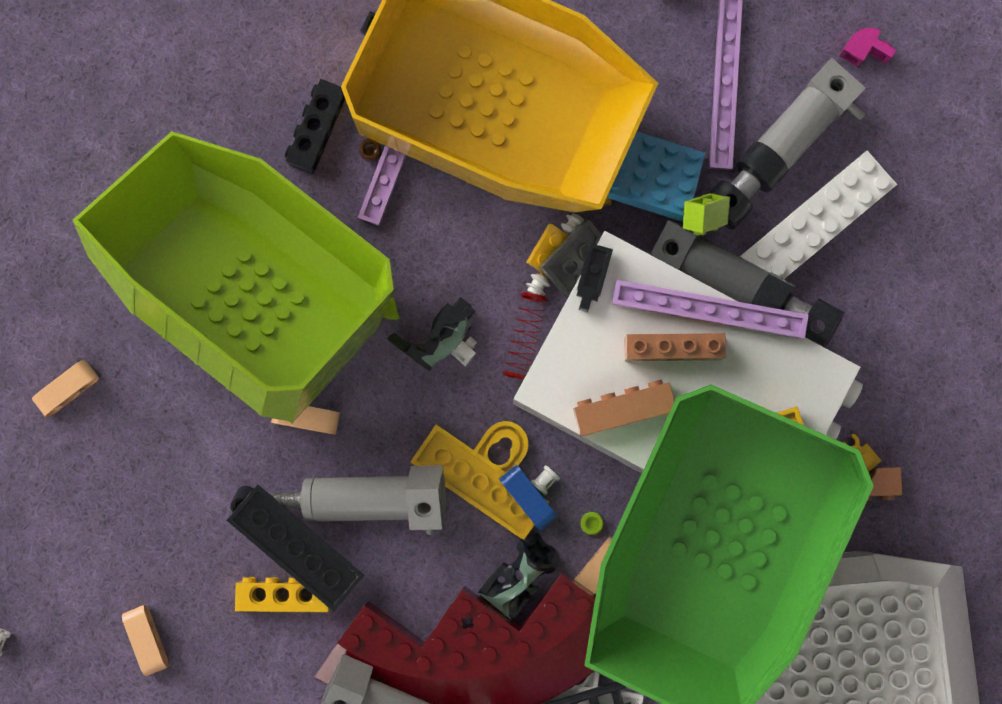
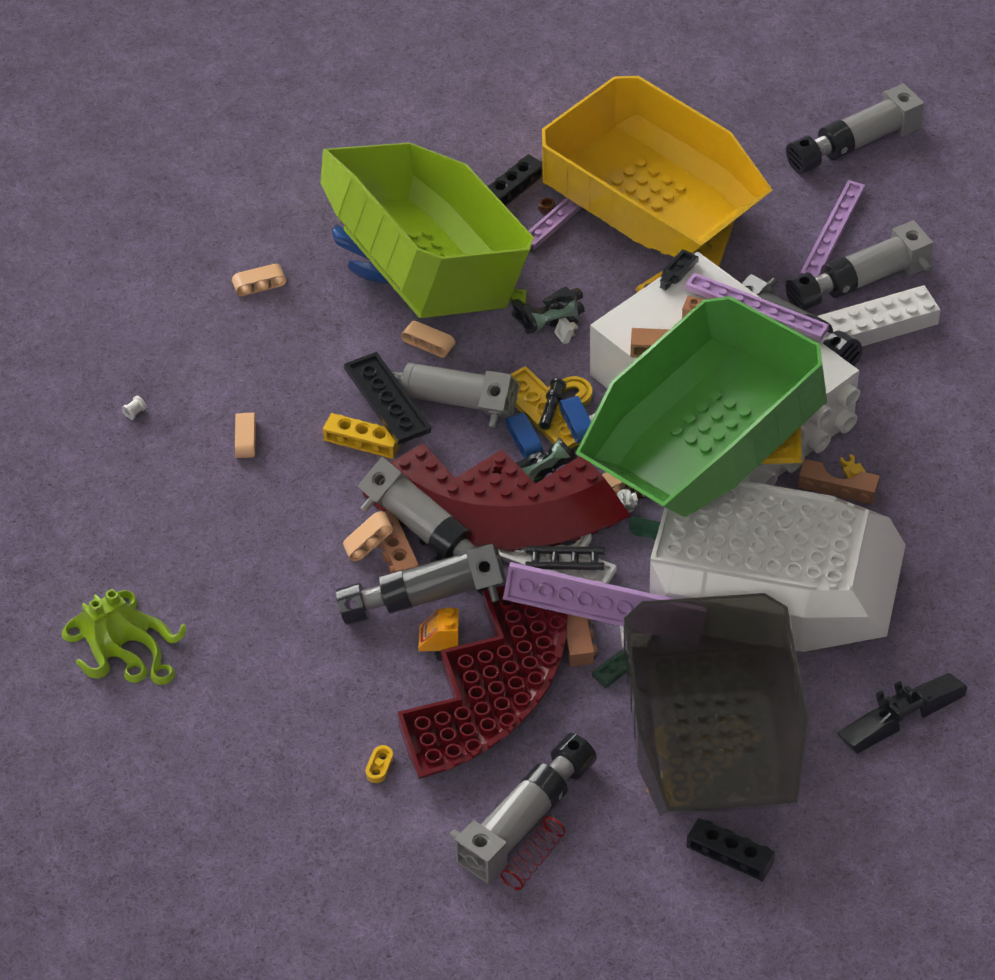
camera: 20 degrees right, 35 degrees down
(471, 532) = (523, 434): none -> blue beam
(488, 471) = (553, 397): none -> black pin
(657, 176) = (752, 259): dark azure plate -> none
(706, 213) = (780, 275): lime brick -> none
(865, 43) = (949, 232): dark pink brick -> none

